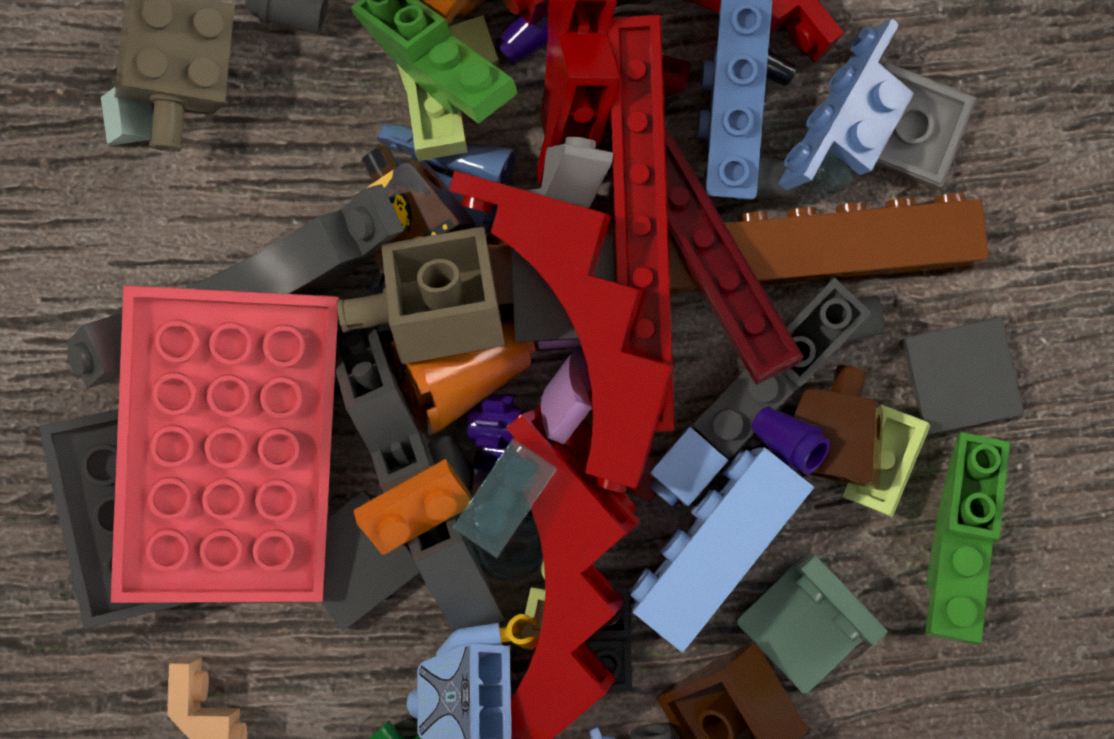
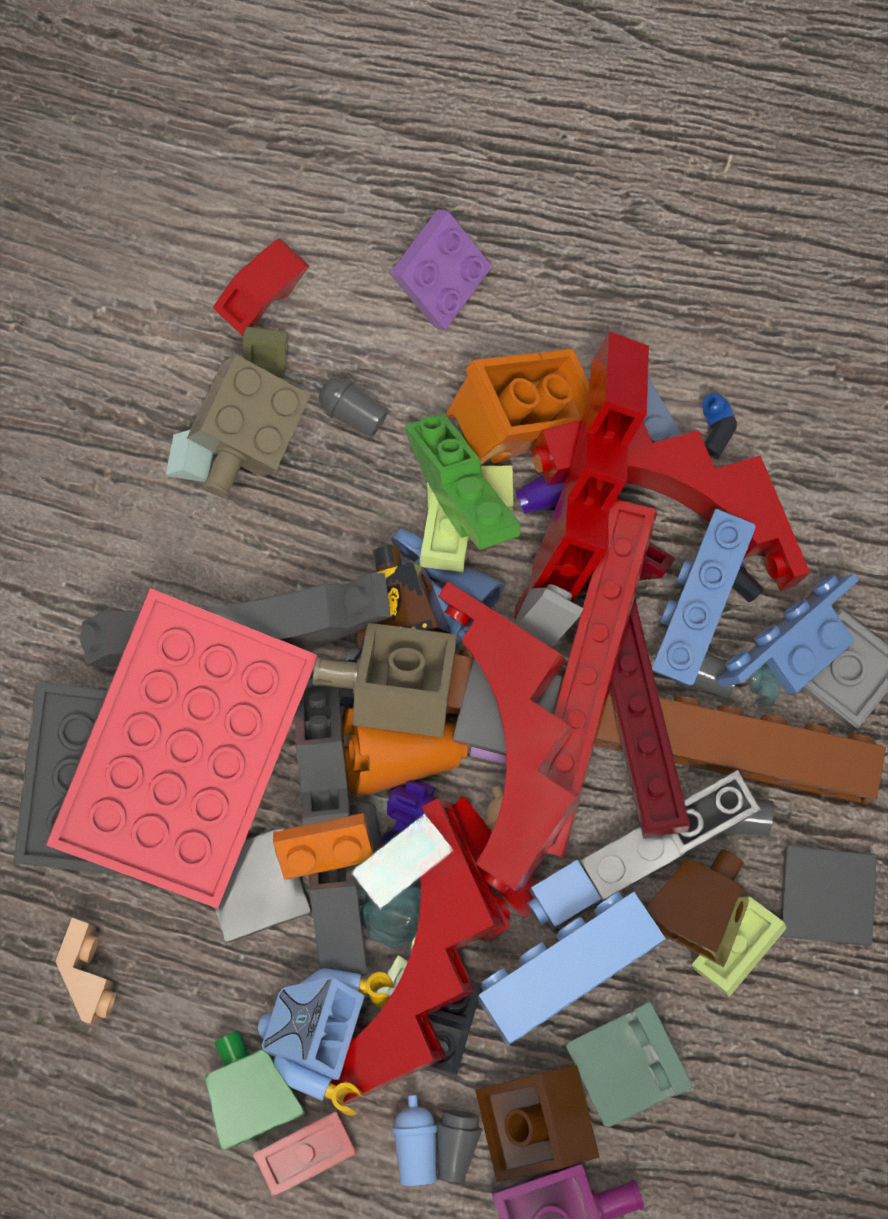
camera: 15 degrees right, 10 degrees down
(566, 398) = (480, 801): lavender slope -> none
(791, 439) = (660, 896): dark purple cone -> none
(964, 538) = (788, 1035): bright green slope -> none

